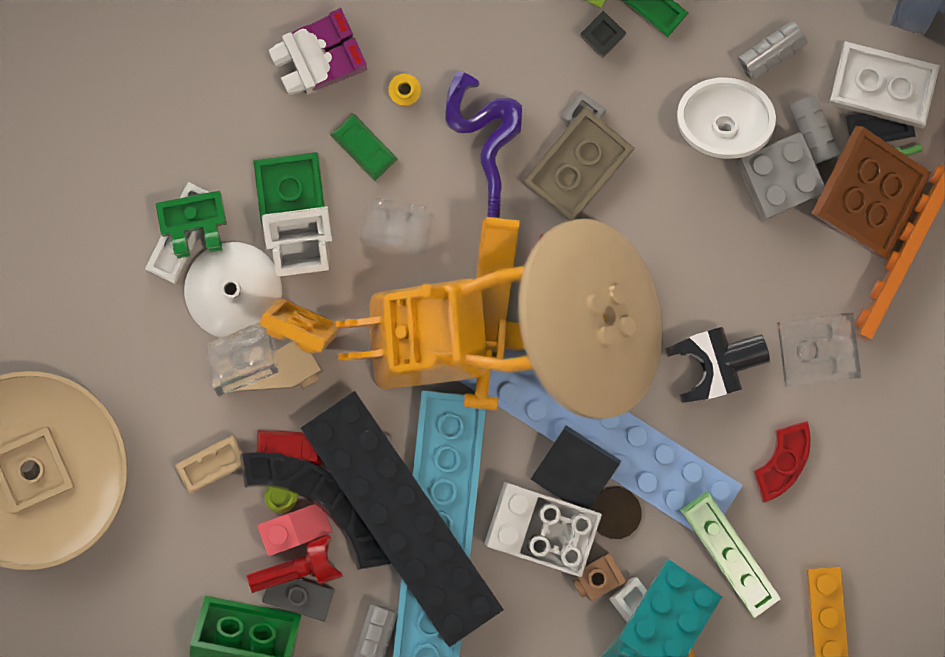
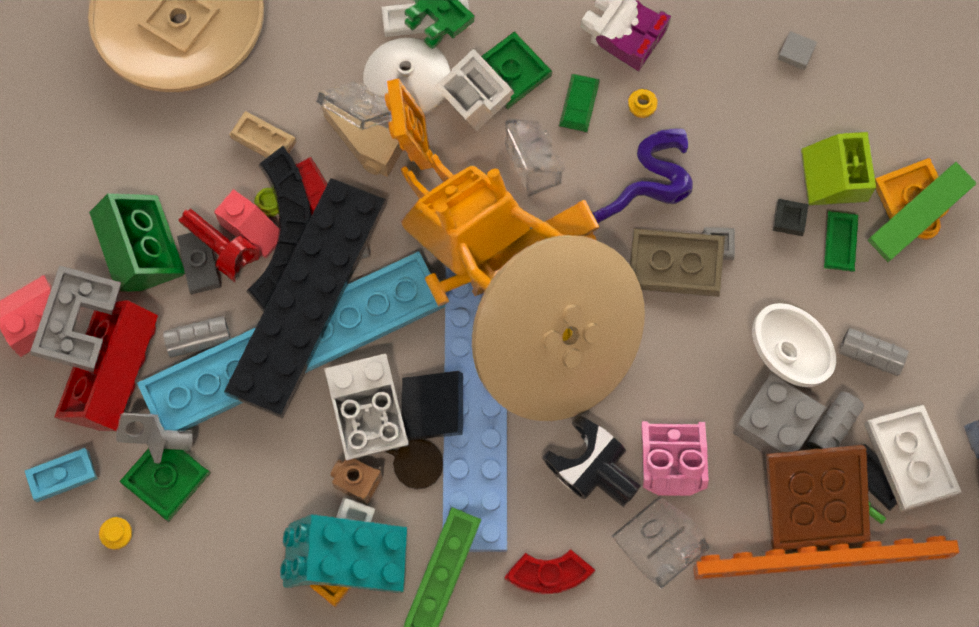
camera: 60 degrees right, 15 degrees down
(755, 288) = (674, 458): none -> bright pink slope

